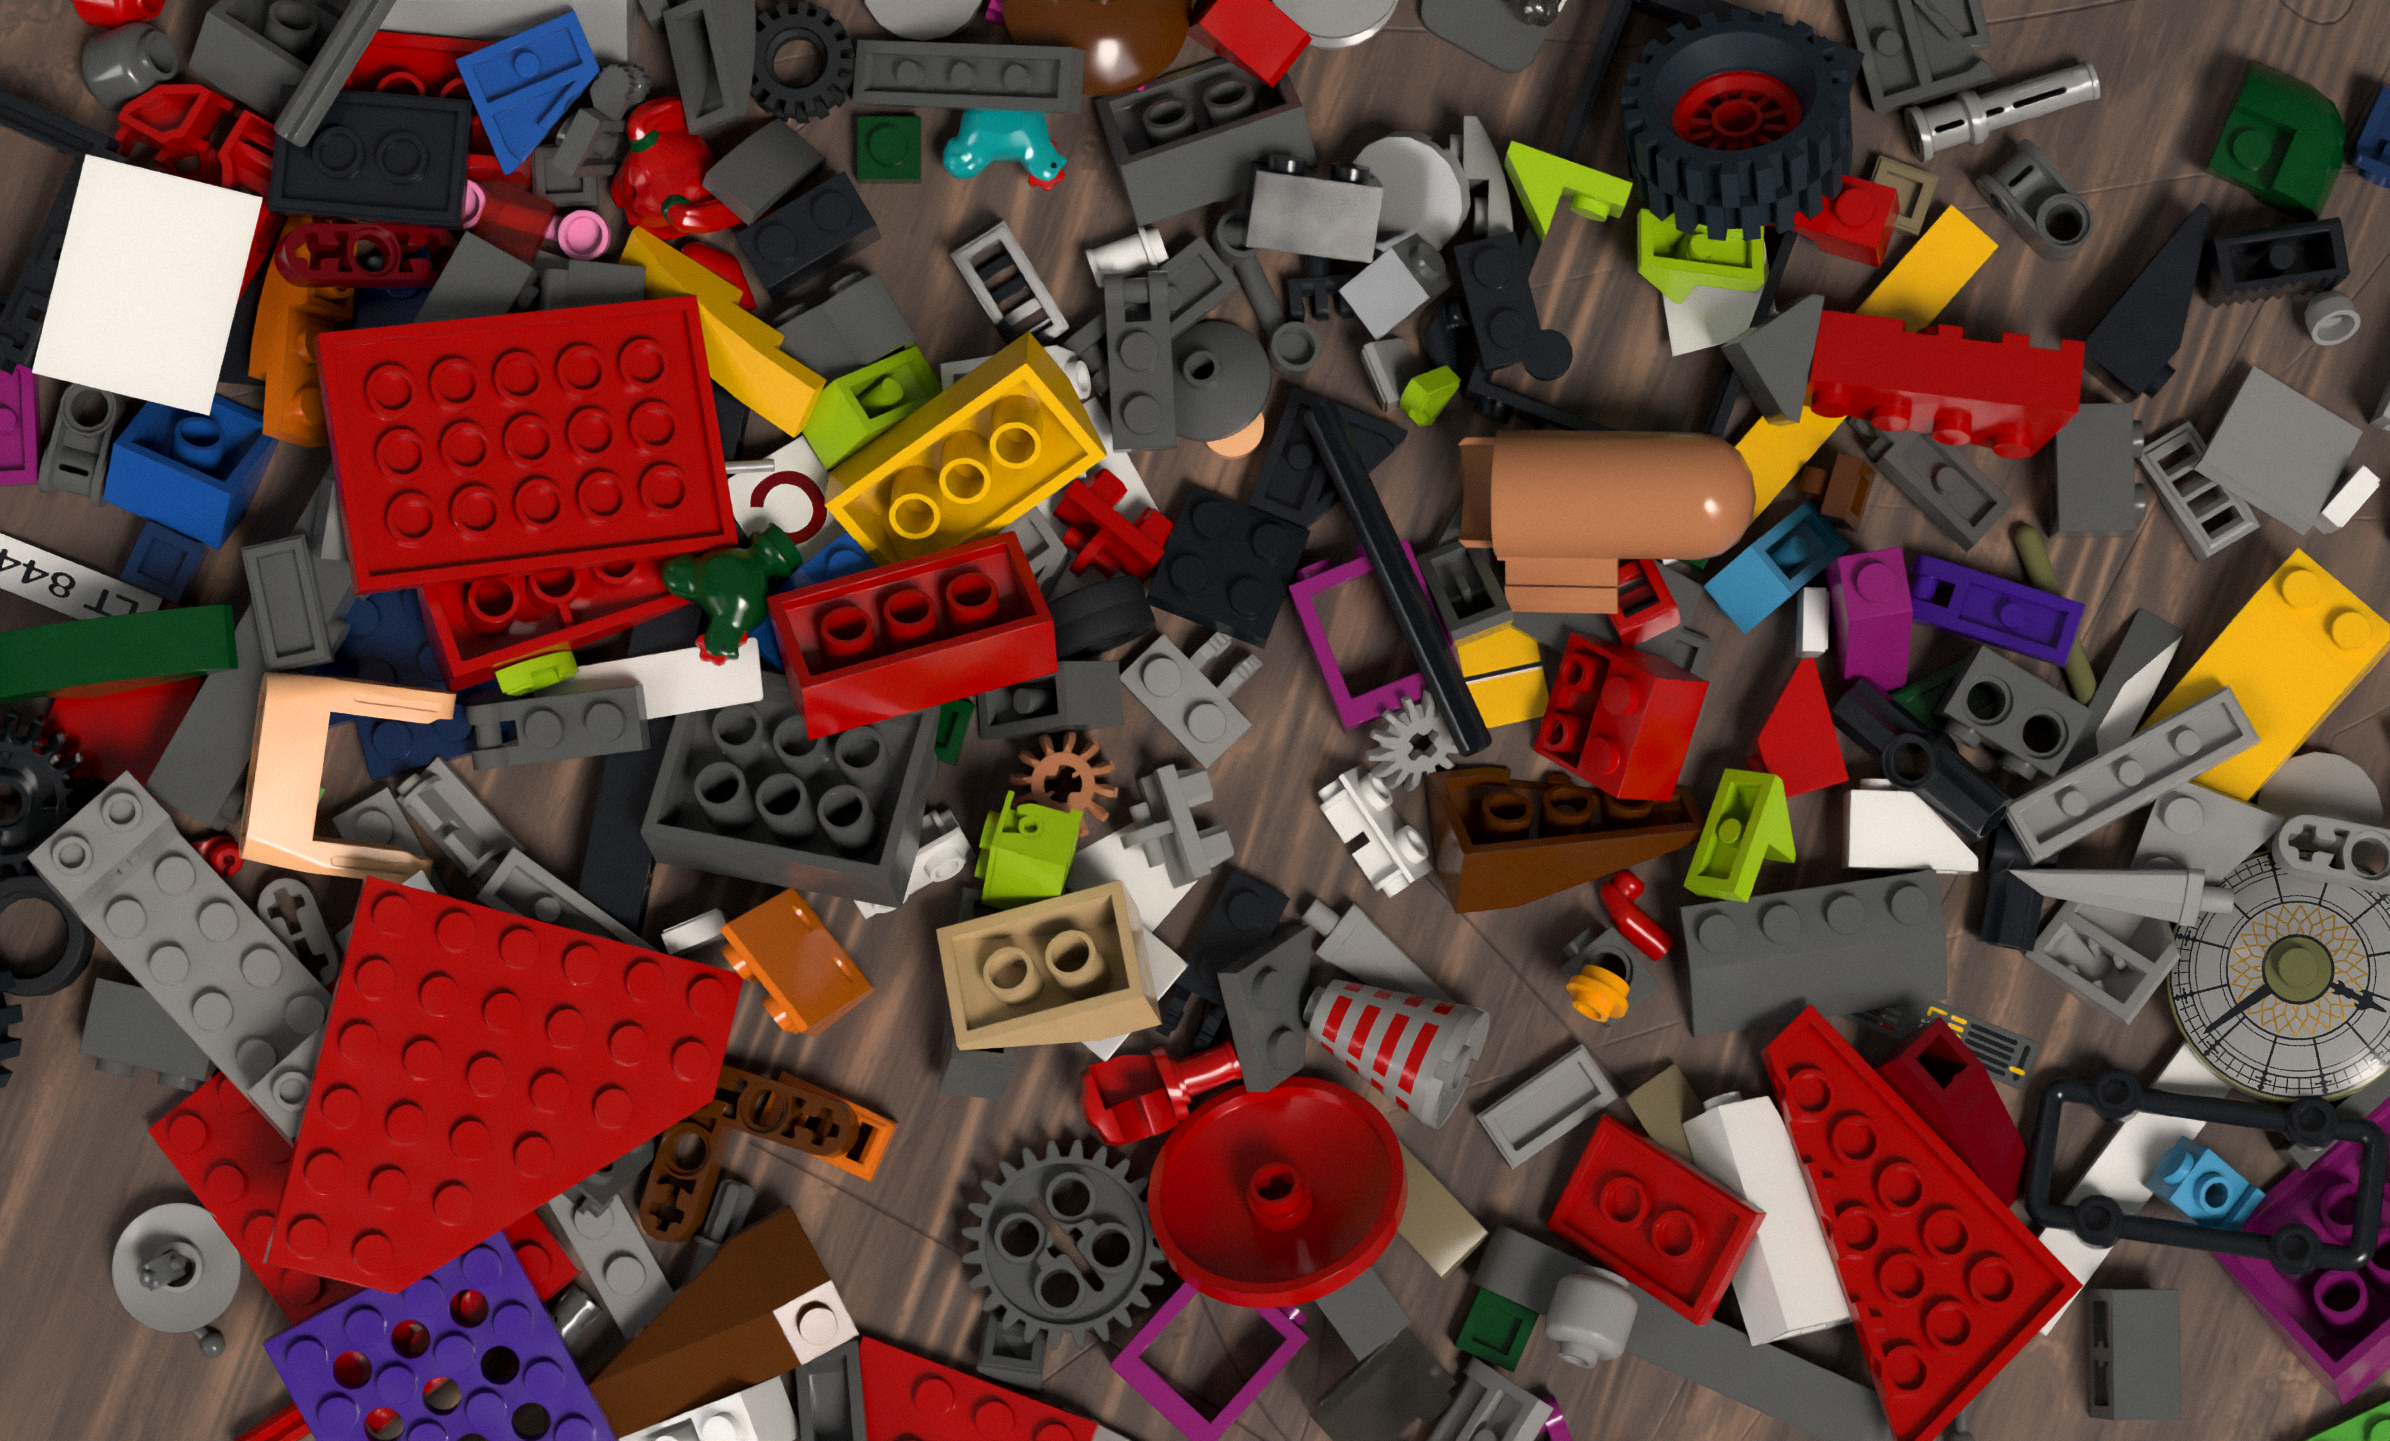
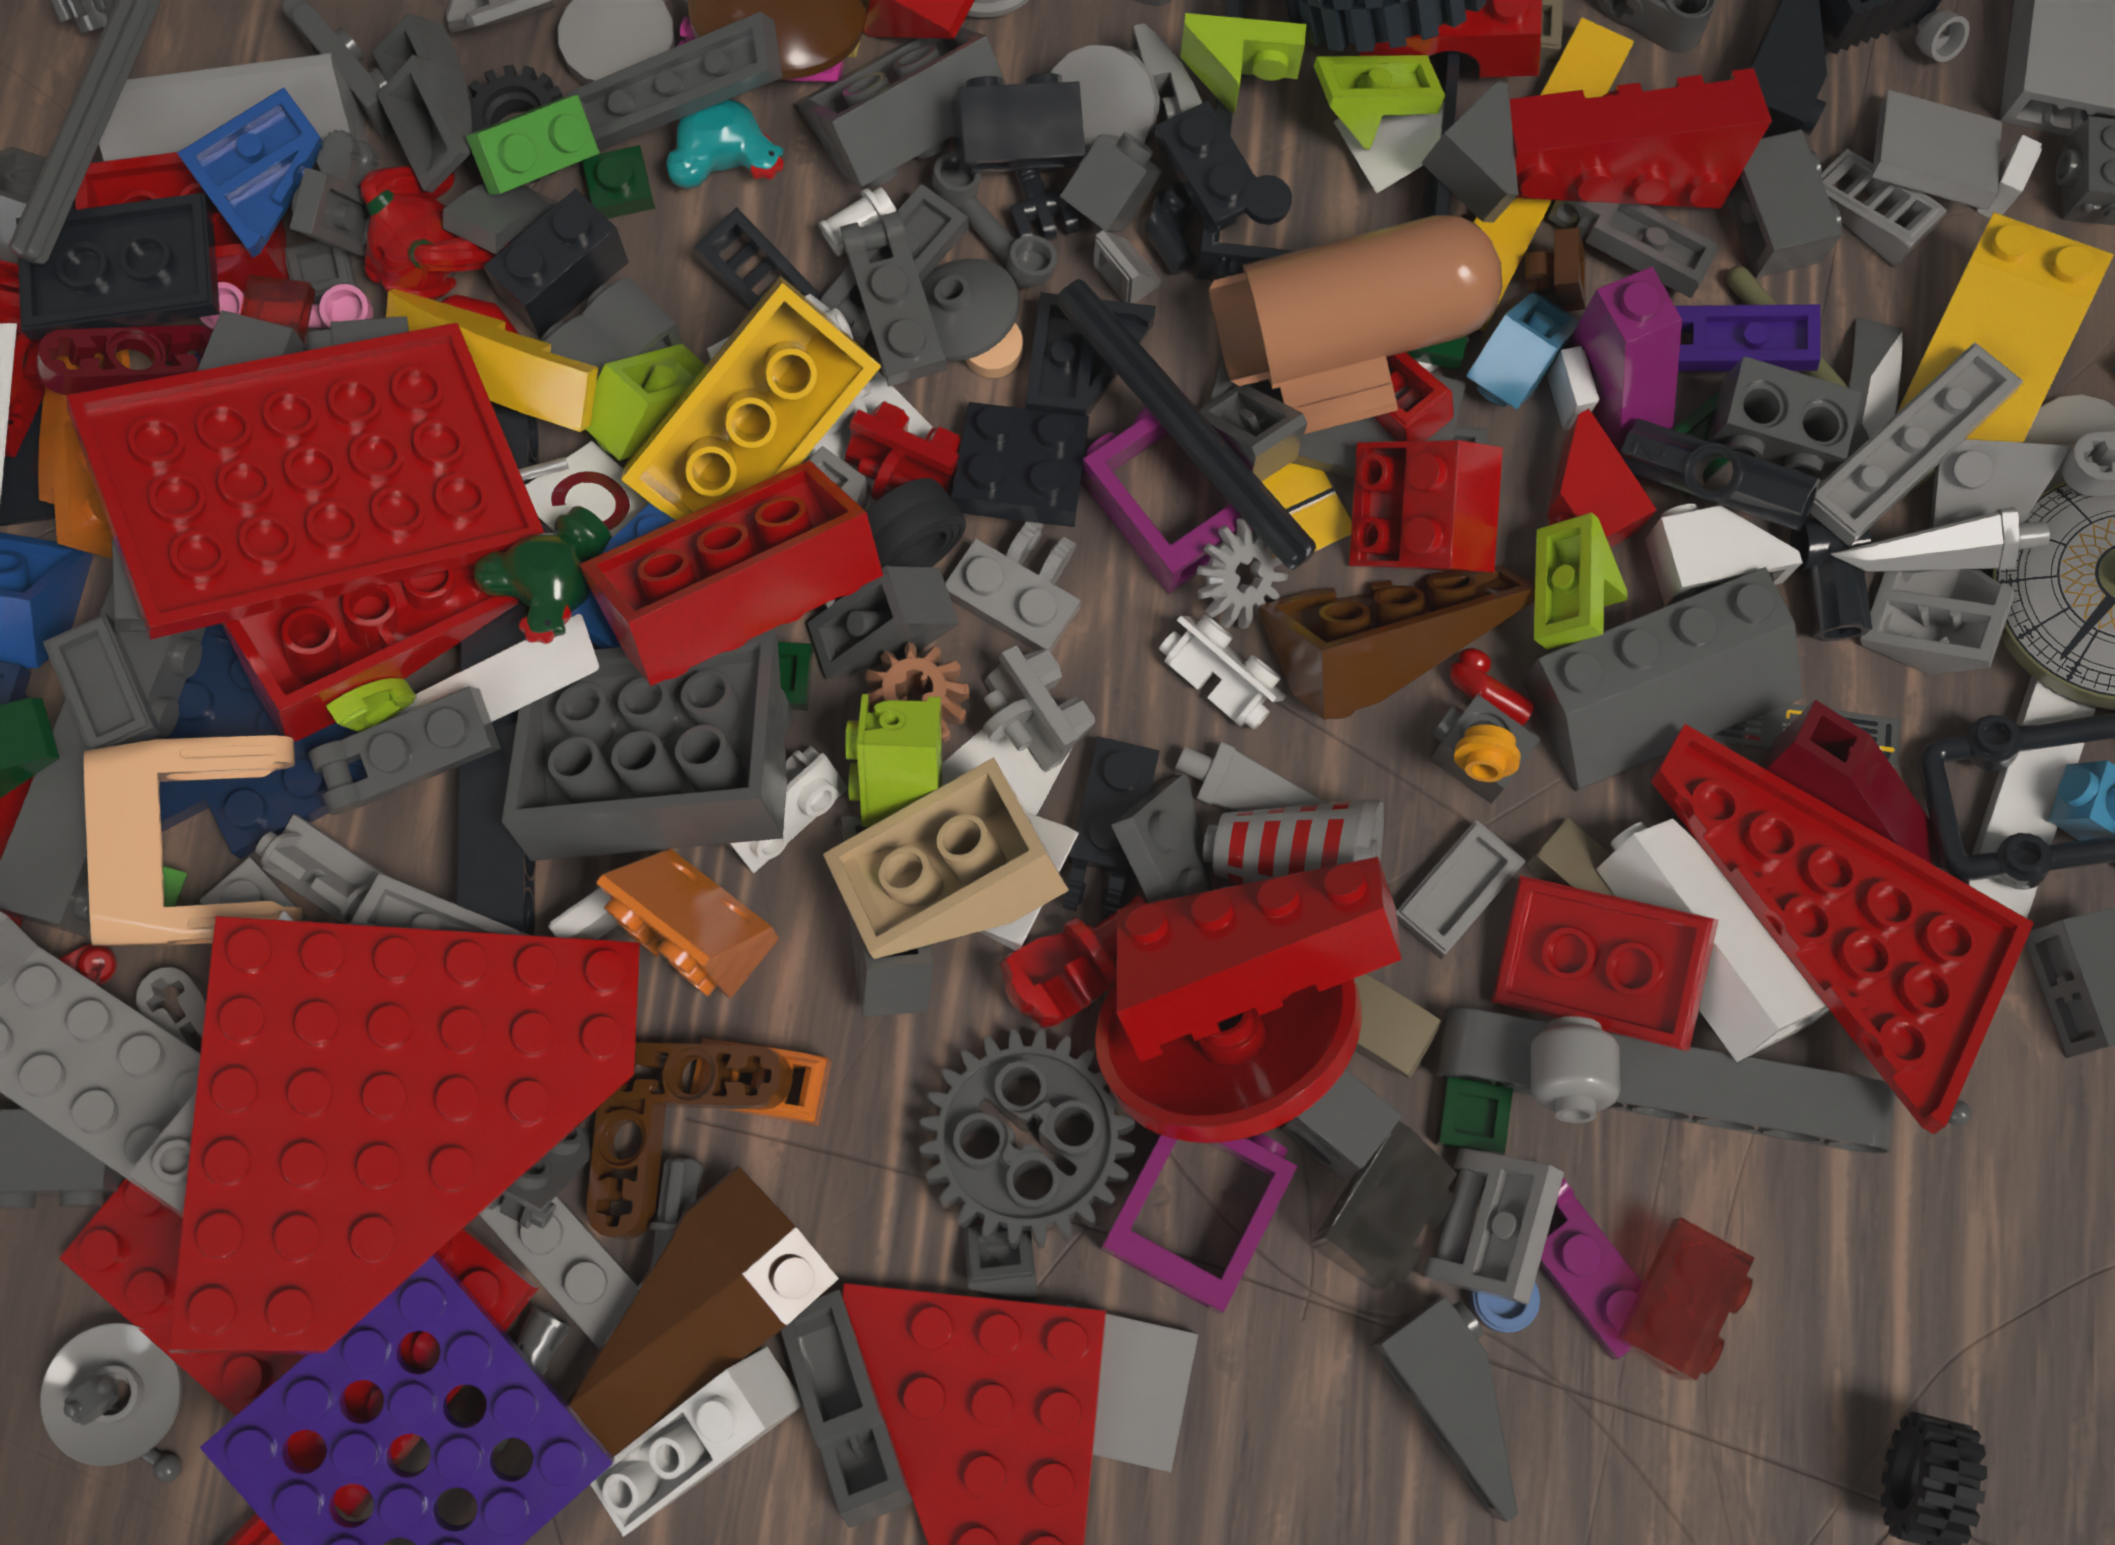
camera: 20 degrees left, 10 degrees down
(811, 110) = (532, 144): none -> bright green plate
(1311, 1129) = (1248, 948): none -> red wedge
(1428, 395) = (1165, 271): lime tile -> none

